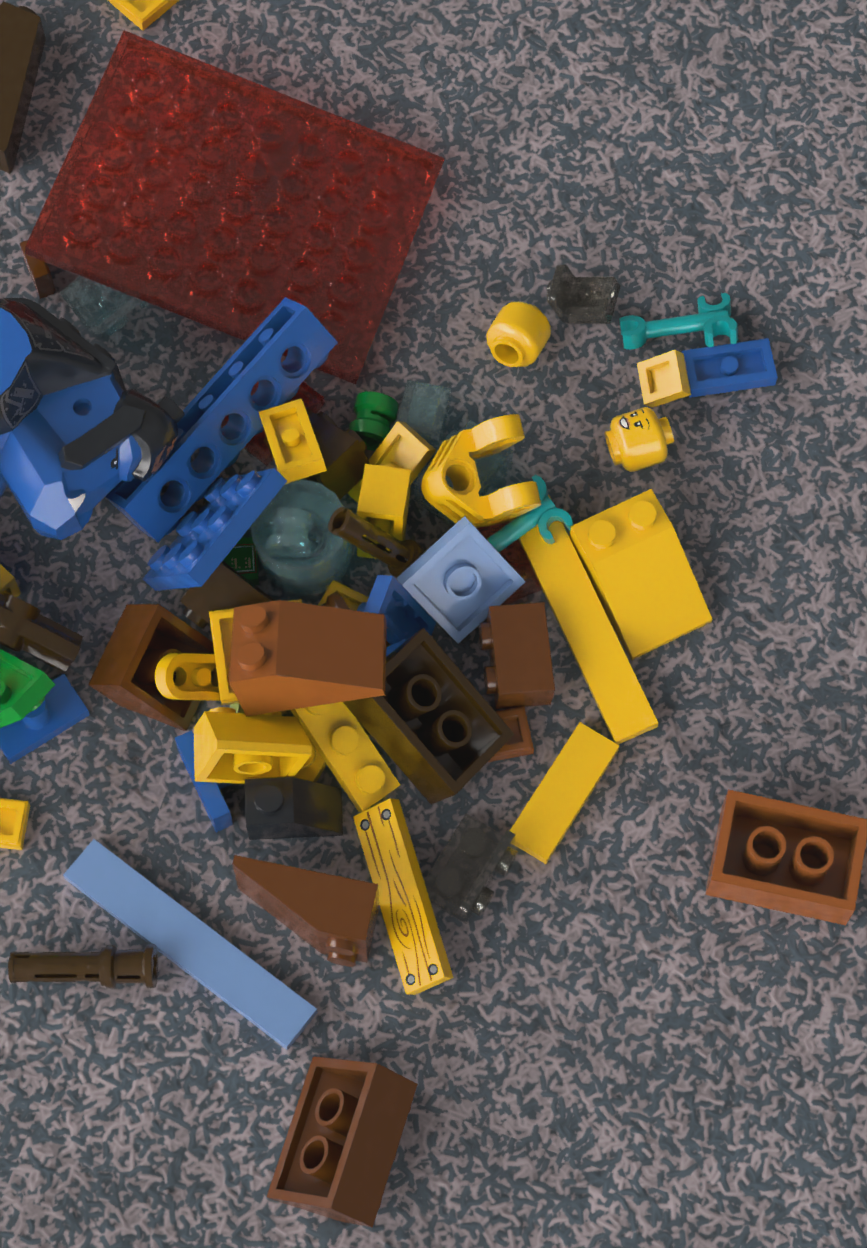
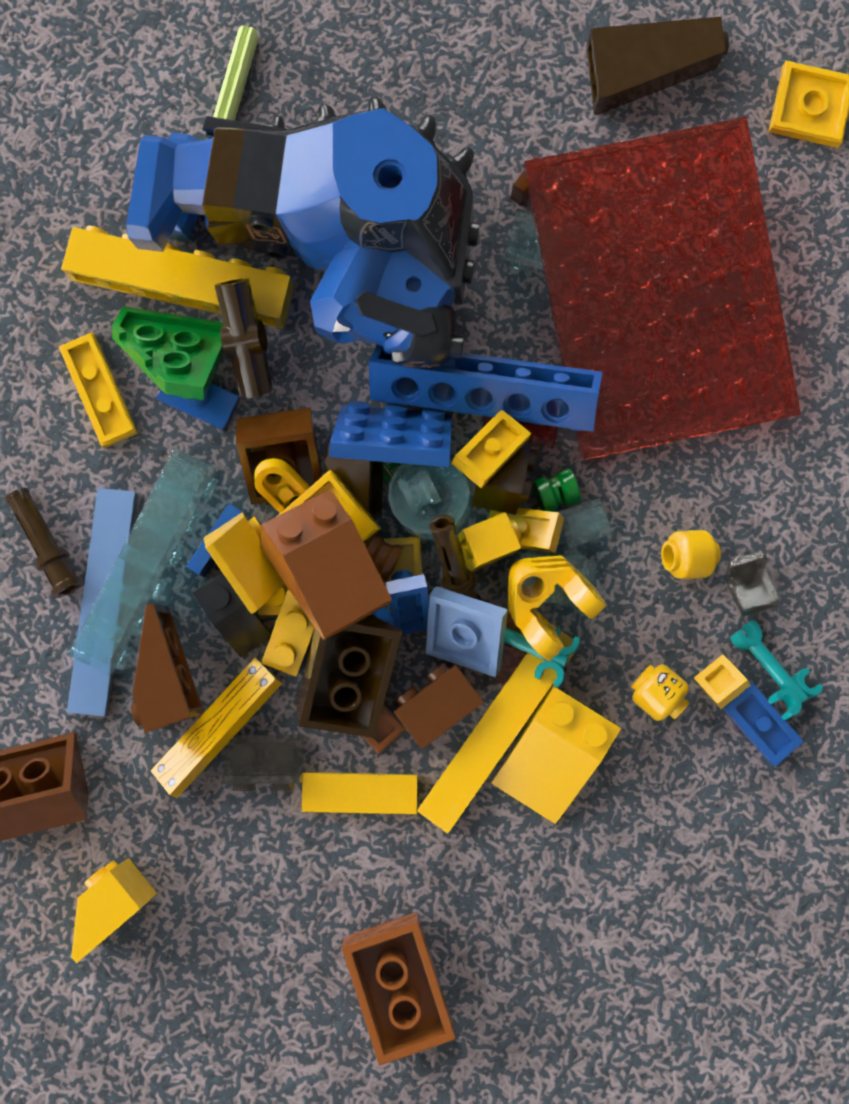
camera: 55 degrees right, 15 degrees up
(179, 865) = (143, 562): none -> clear light blue brick
(525, 1103) = (111, 900): none -> yellow slope

